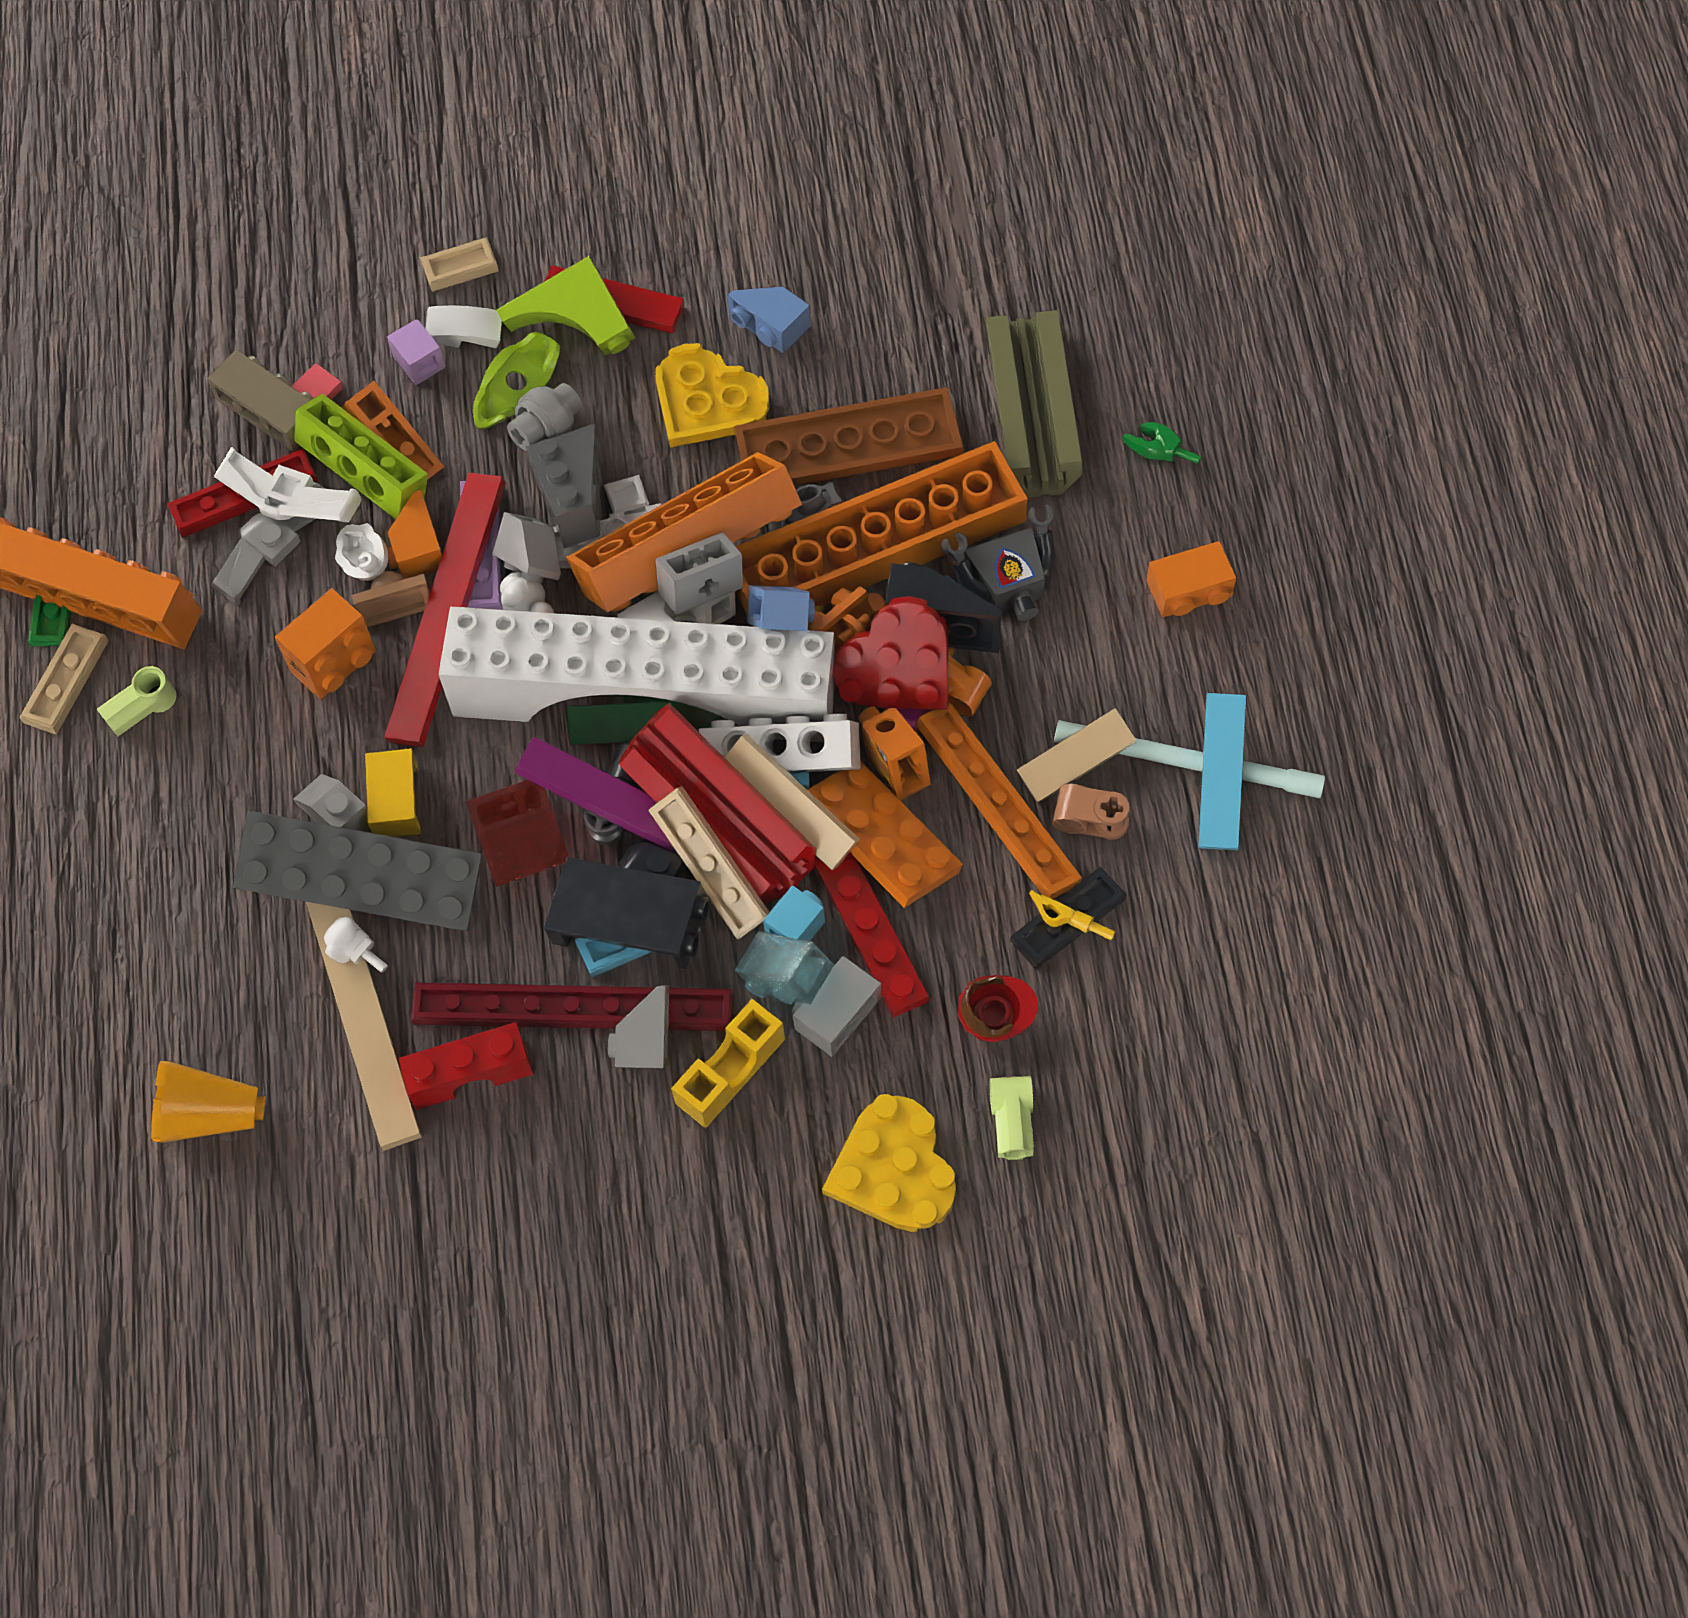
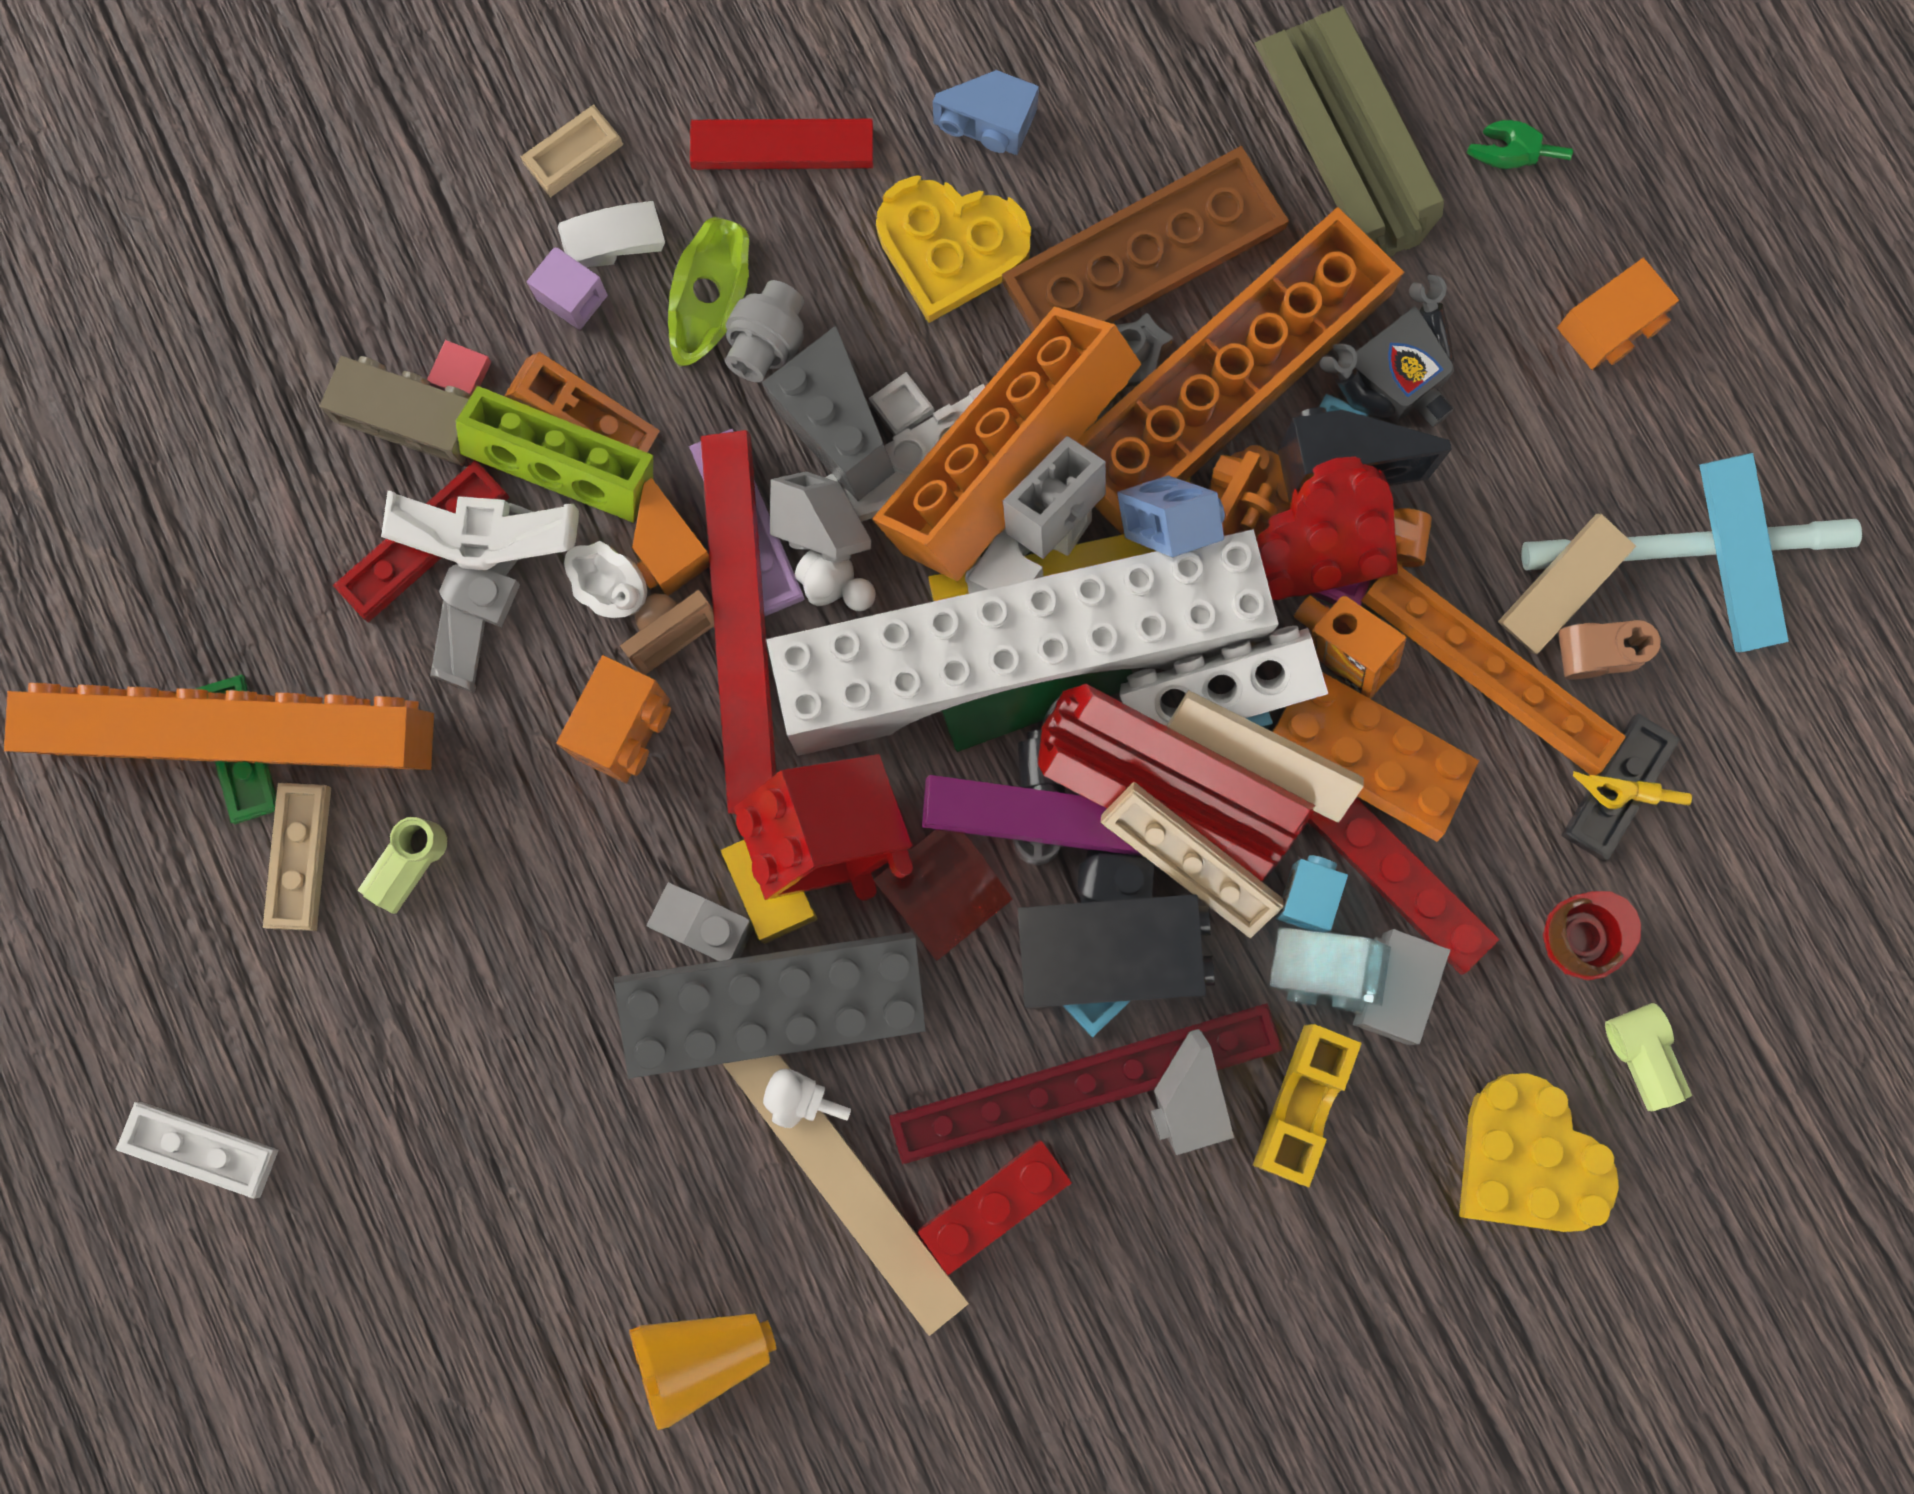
camera: 20 degrees left, 15 degrees up
(442, 753) = (824, 828): none -> red container
(576, 300) = (747, 161): lime arch -> none

